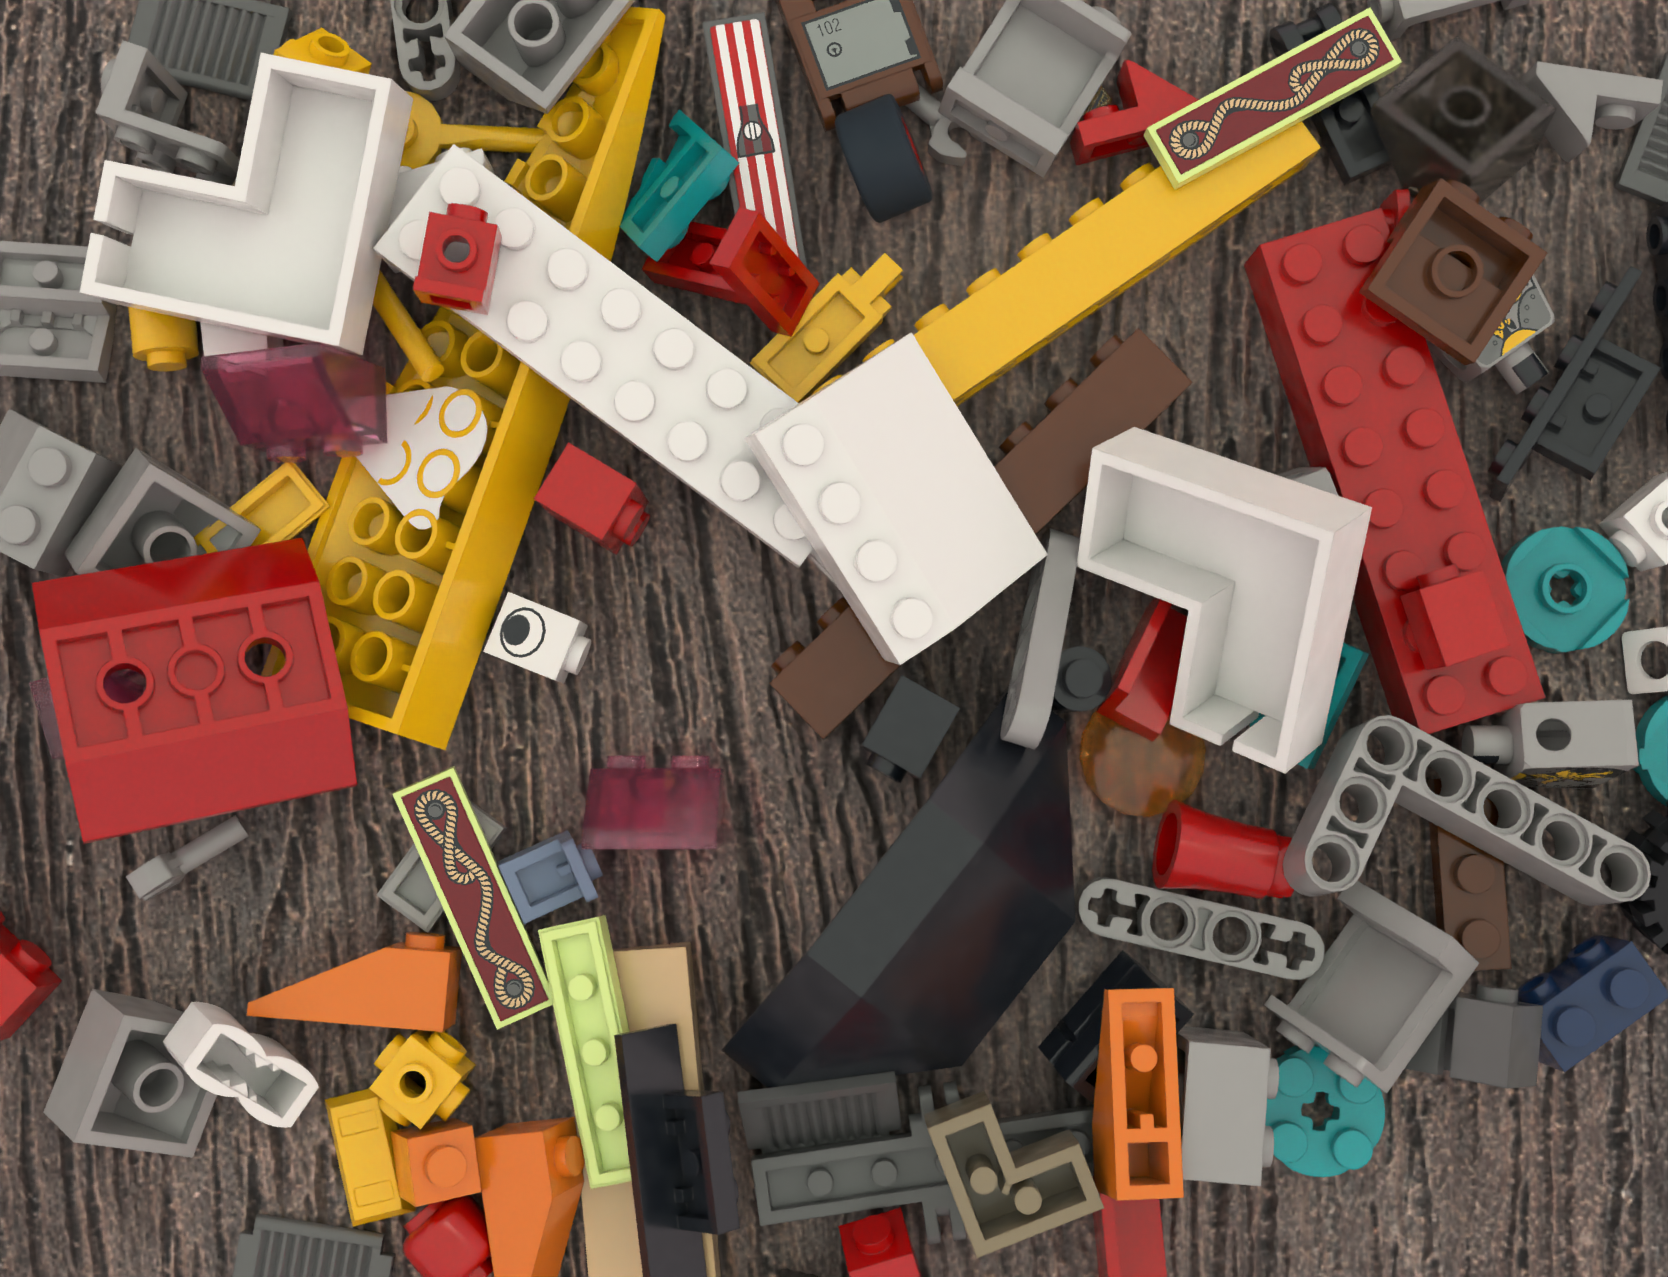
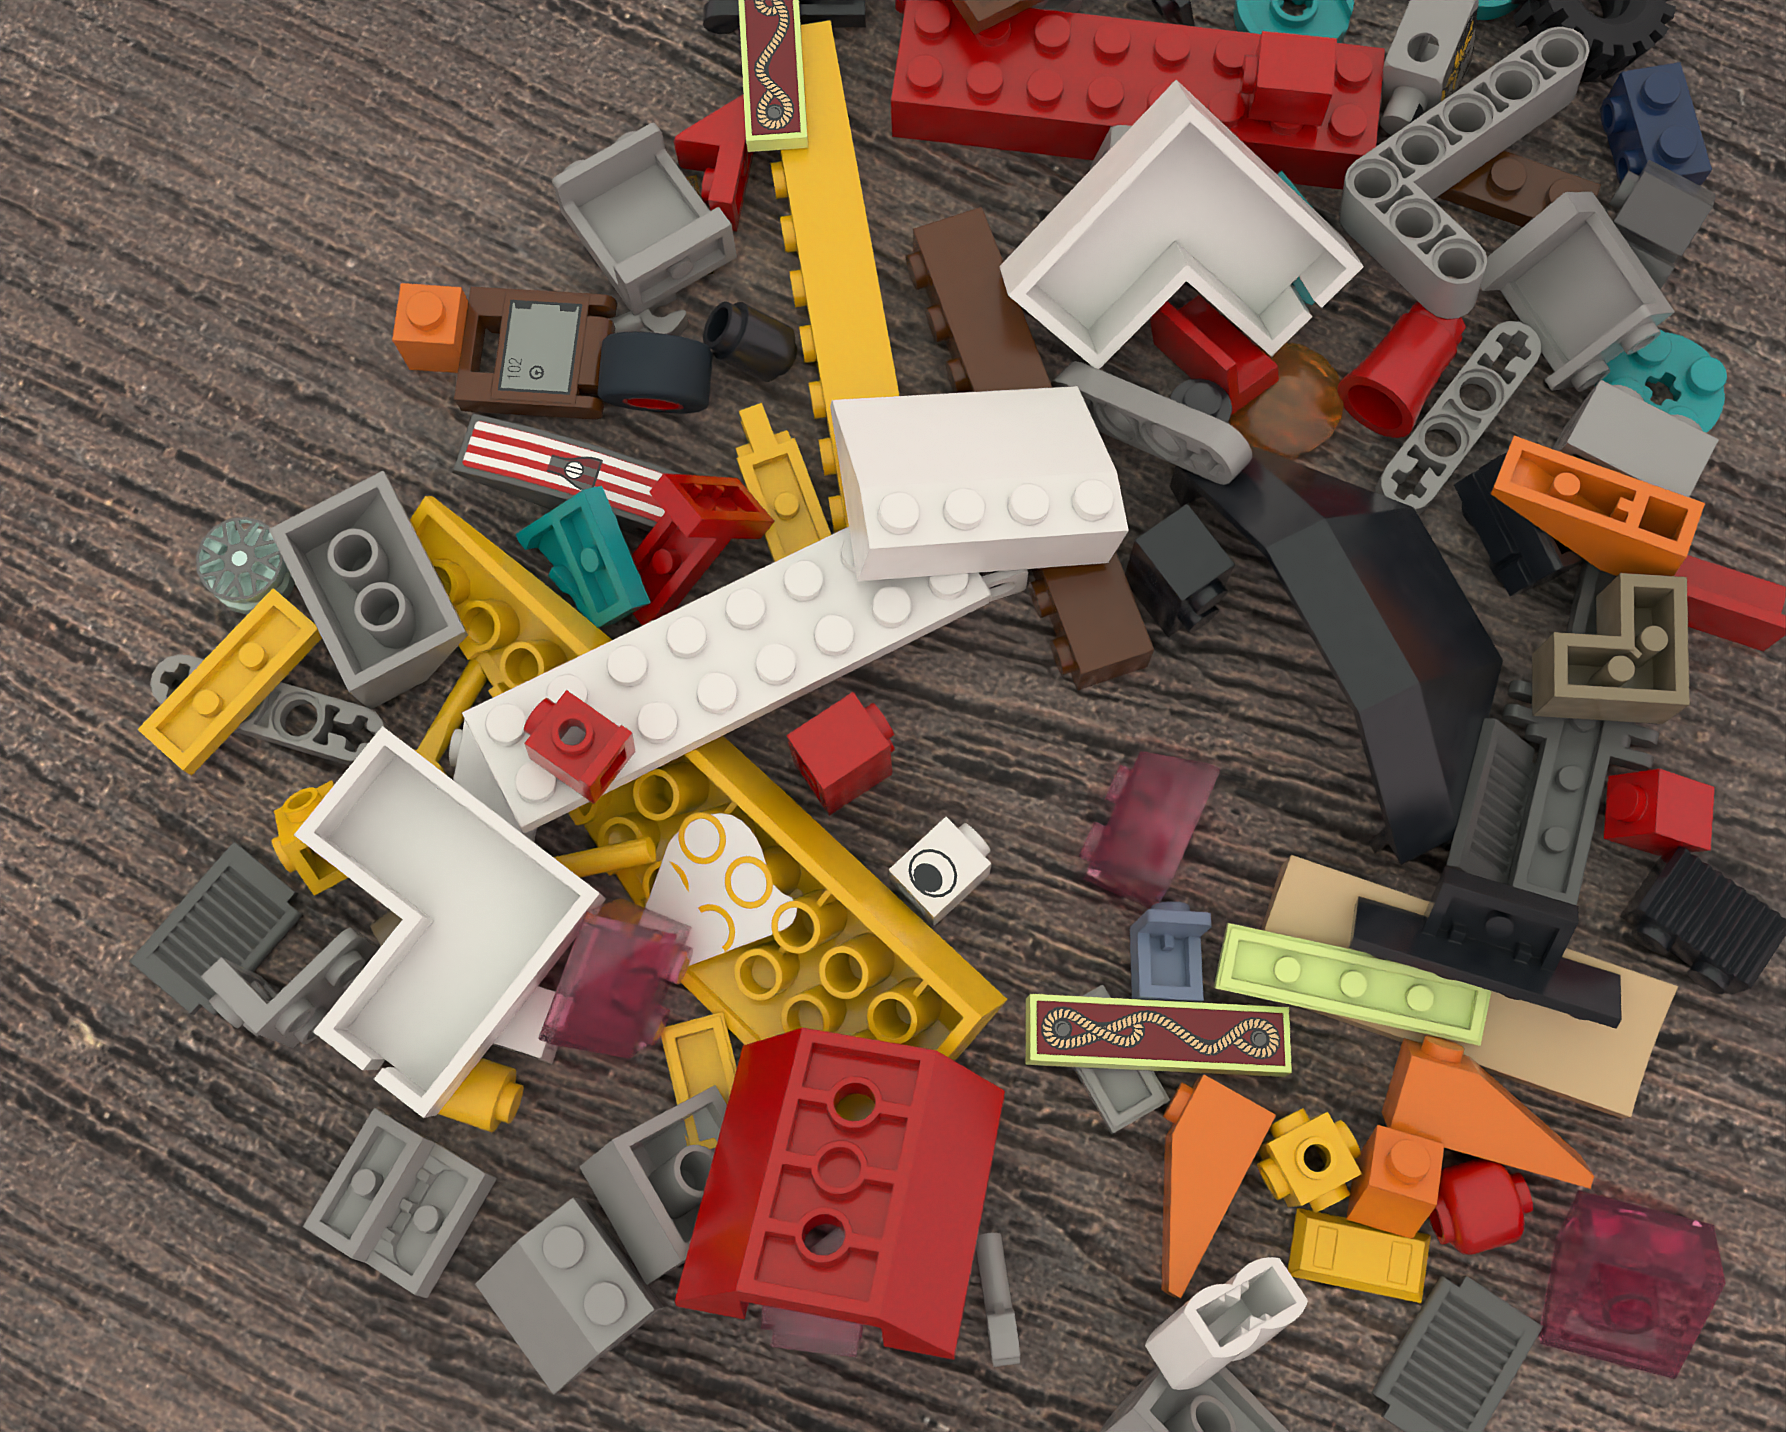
camera: 60 degrees left, 10 degrees down
(958, 230) = (750, 340): none -> black brick

